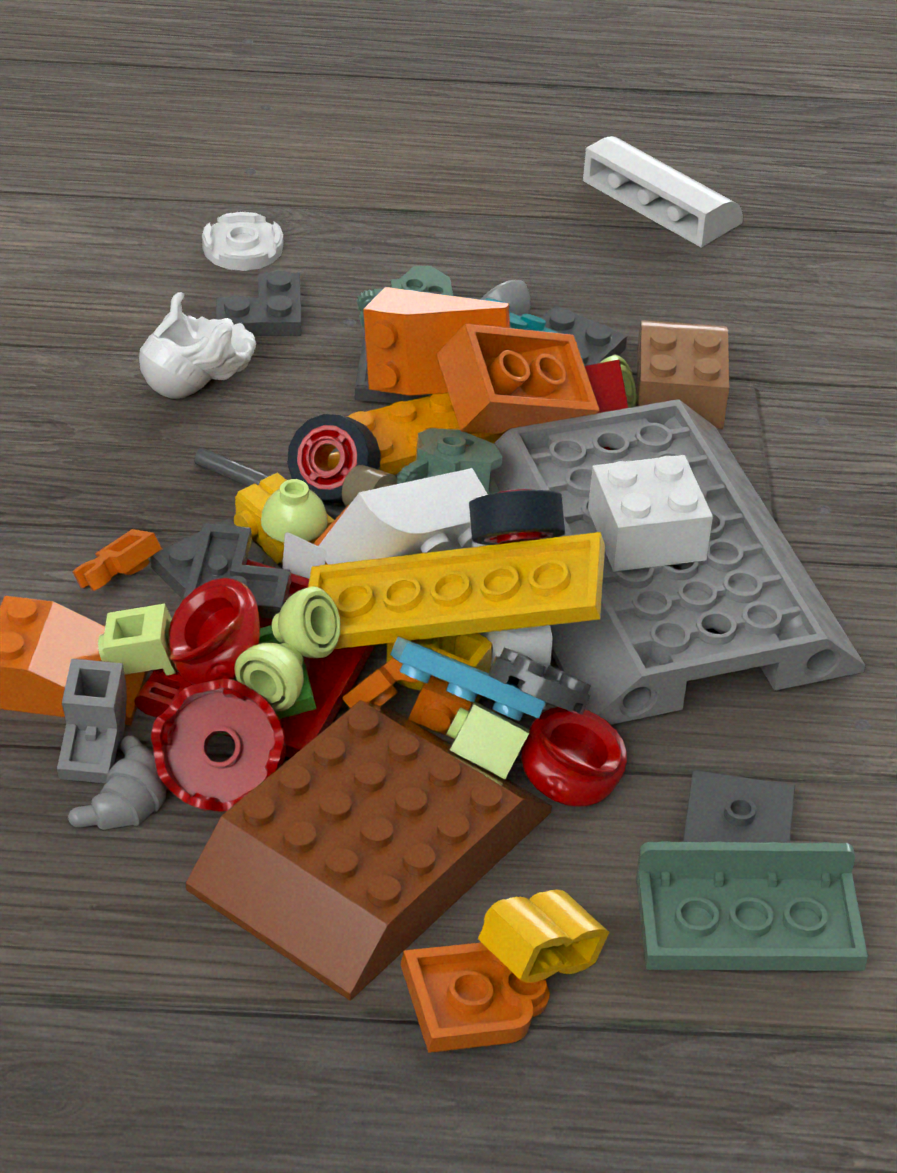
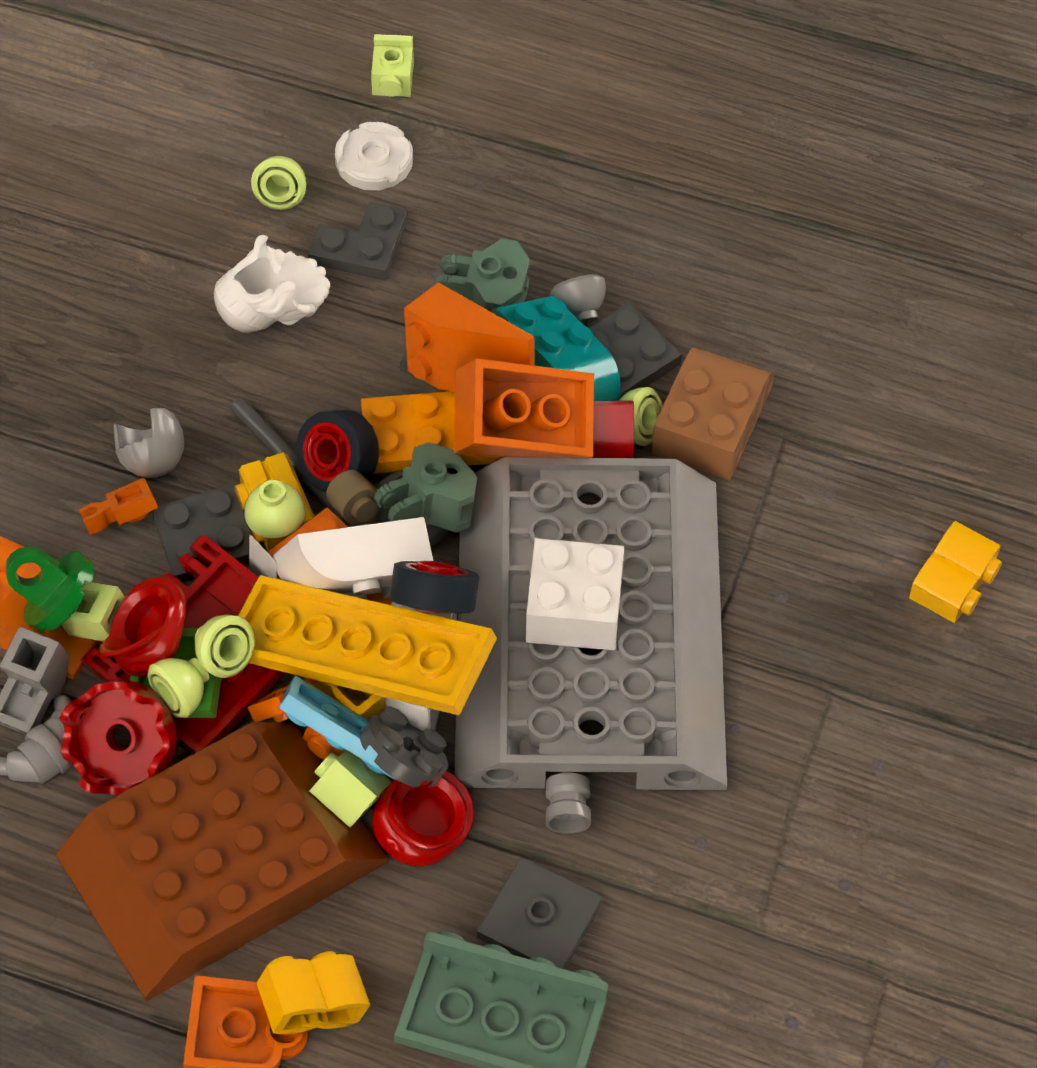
camera: 20 degrees right, 15 degrees up
(98, 618) = (54, 591): none -> green tile
(136, 503) = (151, 451): none -> light grey hair
(161, 270) = (279, 183): none -> yellowish green brick
(224, 554) = (185, 558): dark grey plate -> none
(229, 167) = (392, 65): none -> yellowish green brick
(659, 191) = (796, 179): white brick -> none
(717, 712) = (568, 803): none -> light grey wheel

